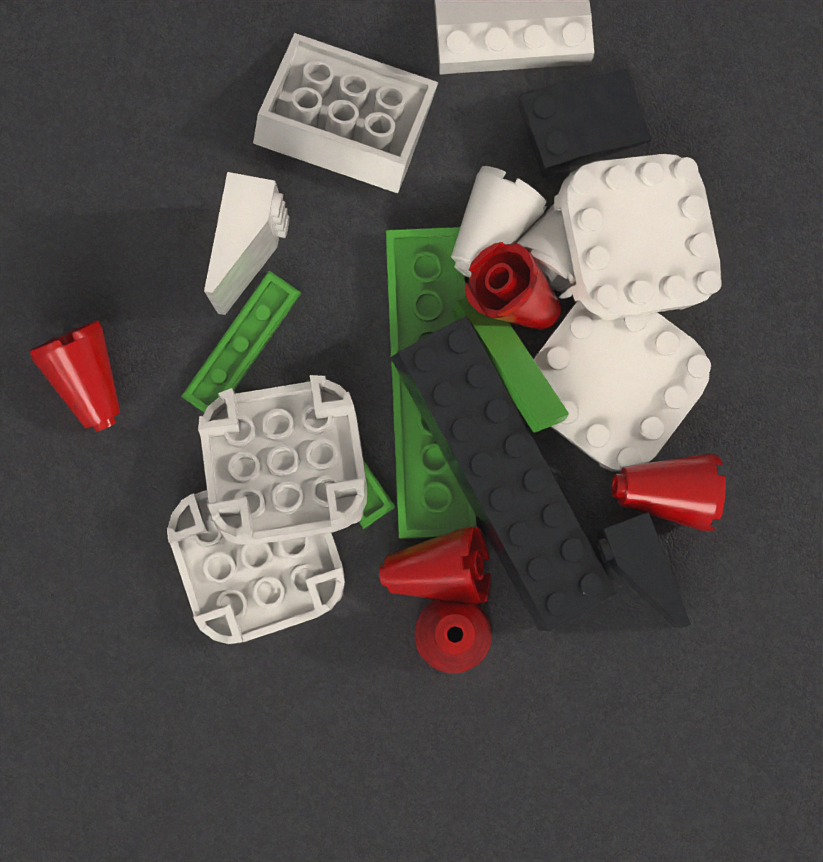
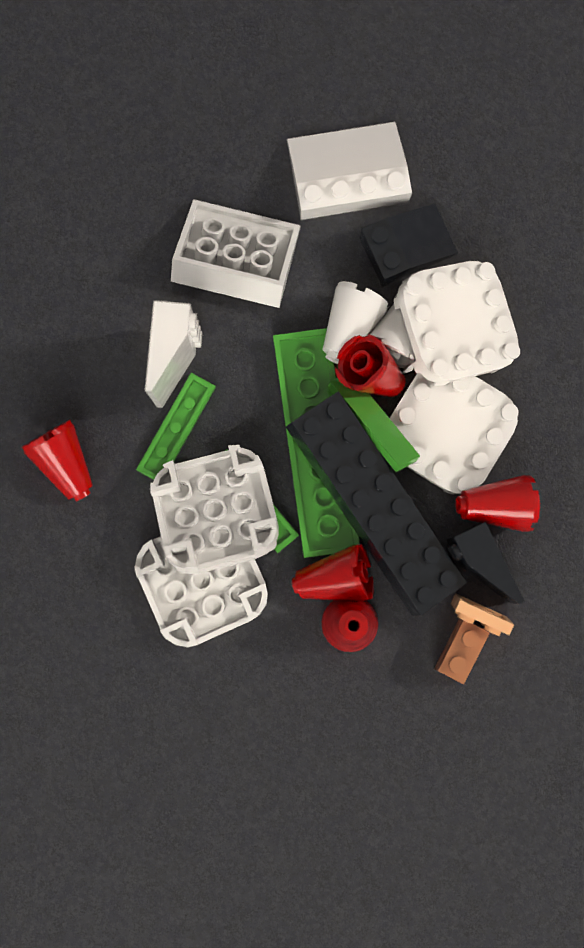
camera: 10 degrees left, 0 degrees up
(601, 685) = (461, 650): none -> nougat brick
(645, 647) = (490, 619): none -> light nougat plate

